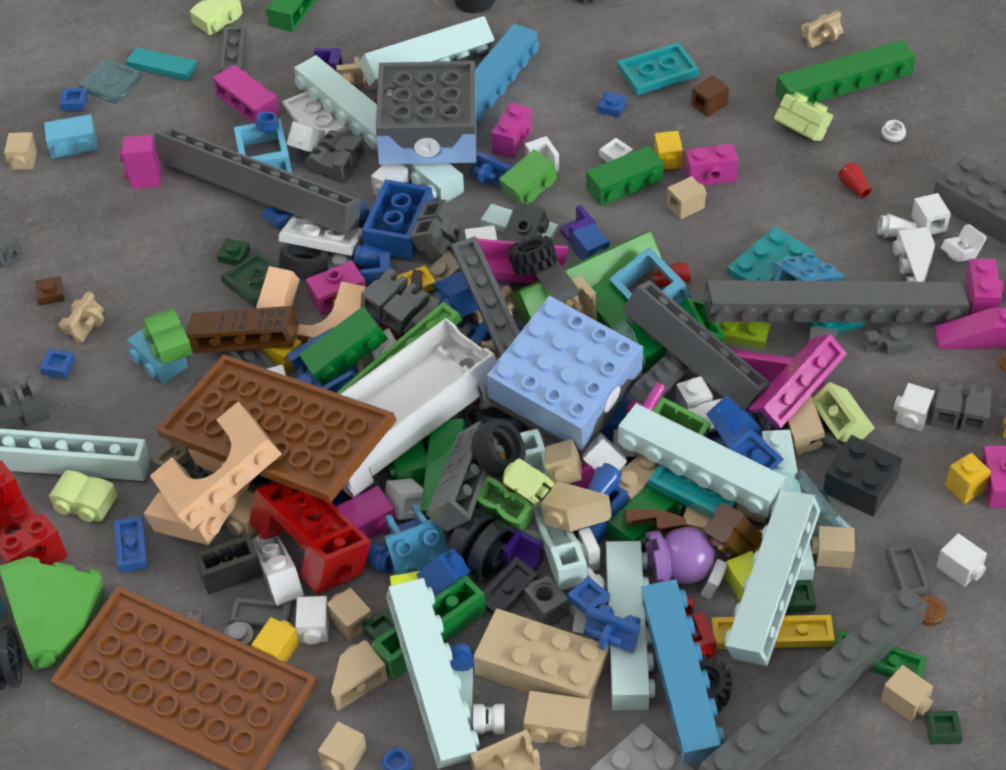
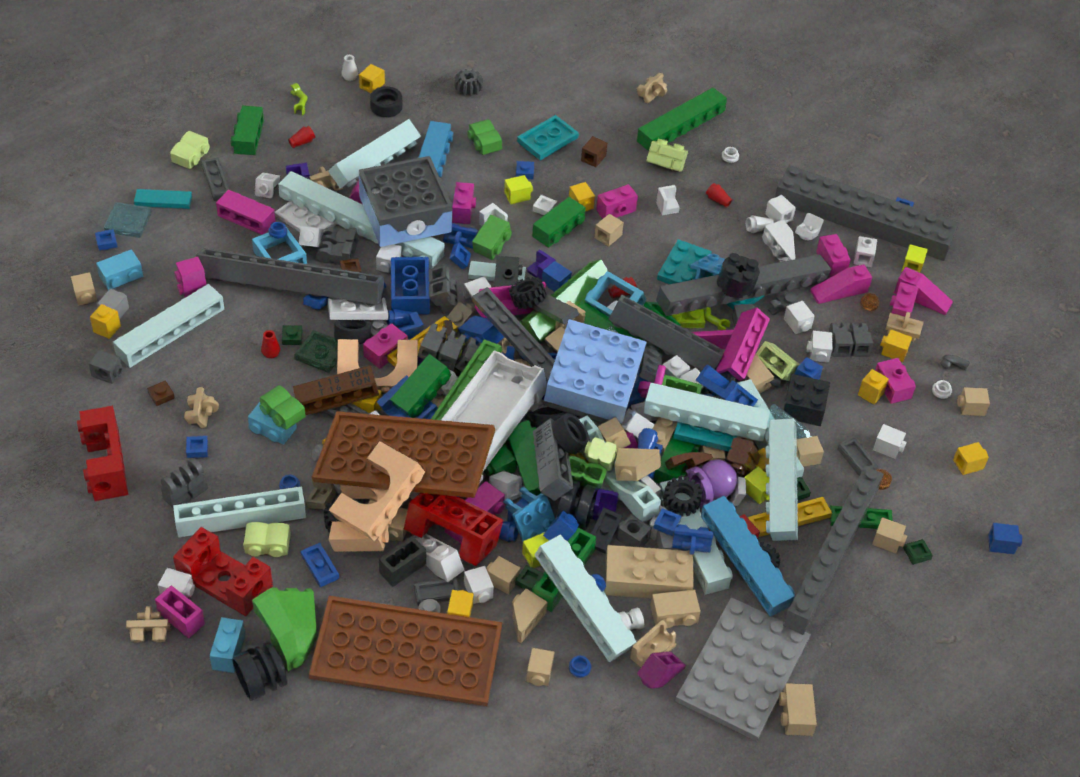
camera: 25 degrees left, 0 degrees up
(24, 193) = (105, 321): none -> yellow brick
(43, 176) = (116, 301): none -> light grey brick
(94, 212) = (168, 325): none -> light aqua brick
(145, 431) = (289, 481): none -> blue plate
(198, 259) = (270, 346): none -> red cone
(283, 67) = (265, 184): none -> white bracket
(340, 182) = (350, 265): none -> reddish brown plate
(353, 19) = (301, 137): none -> red cone
(480, 195) = (460, 256): none -> blue plate
(576, 54) = (485, 137): none -> bright green brick
(590, 126) = (518, 189): none -> neon yellow brick
(619, 580) = (686, 487): none -> black tyre
(781, 174) = (666, 200): none -> white panel
(782, 343) = (714, 320): none -> lime arm
(821, 287) = (738, 276): none -> black brick
(882, 435) = (809, 369): none -> blue brick
(899, 361) = (799, 317): none -> white brick

